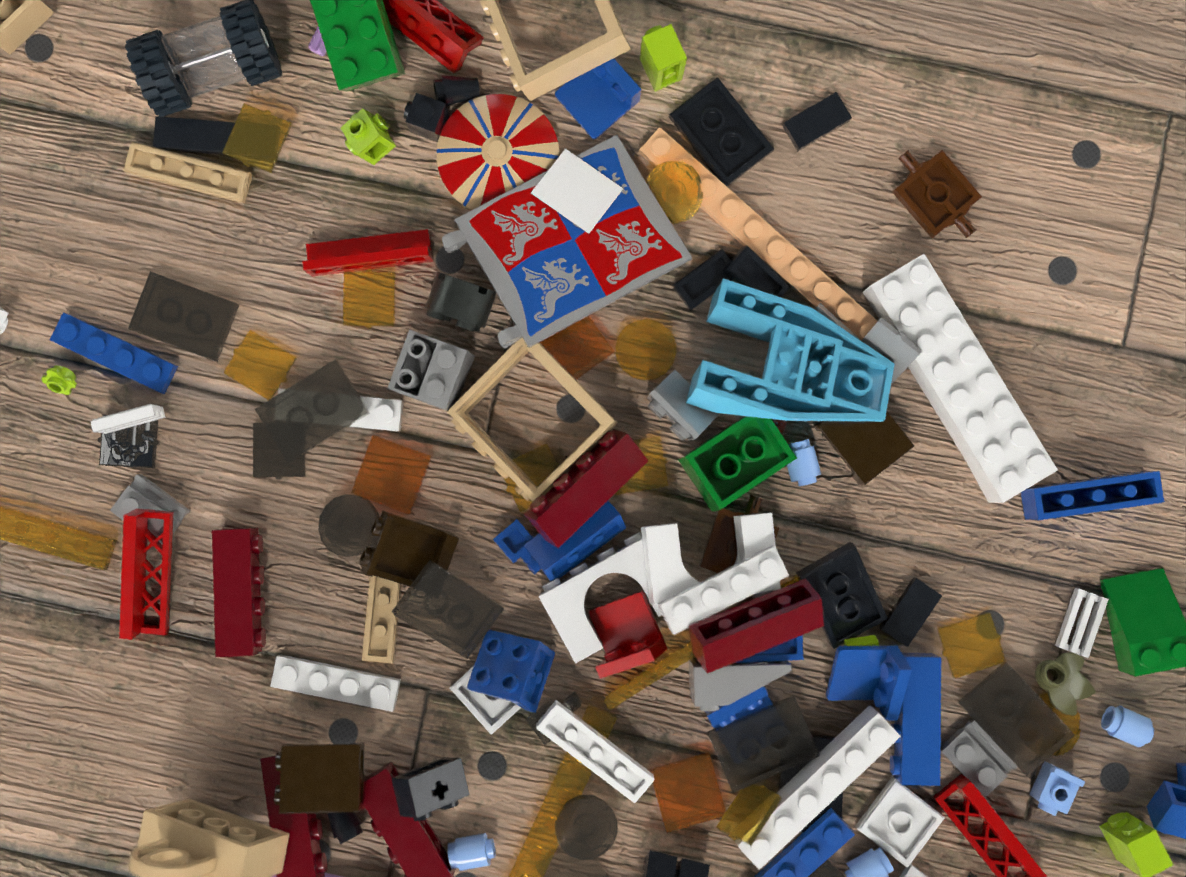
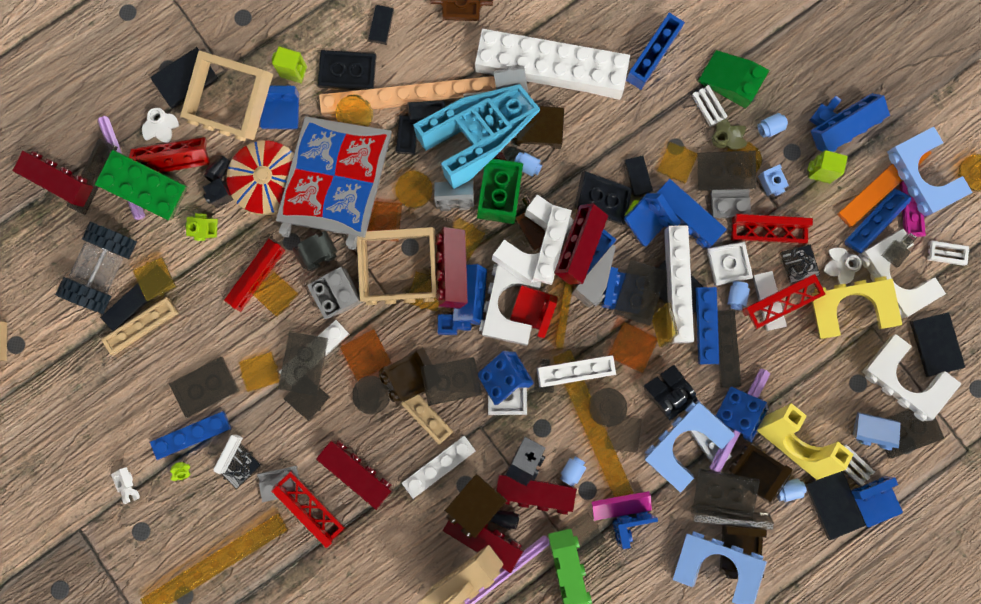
camera: 50 degrees left, 5 degrees down
(577, 191) = (314, 155): white sticker -> none

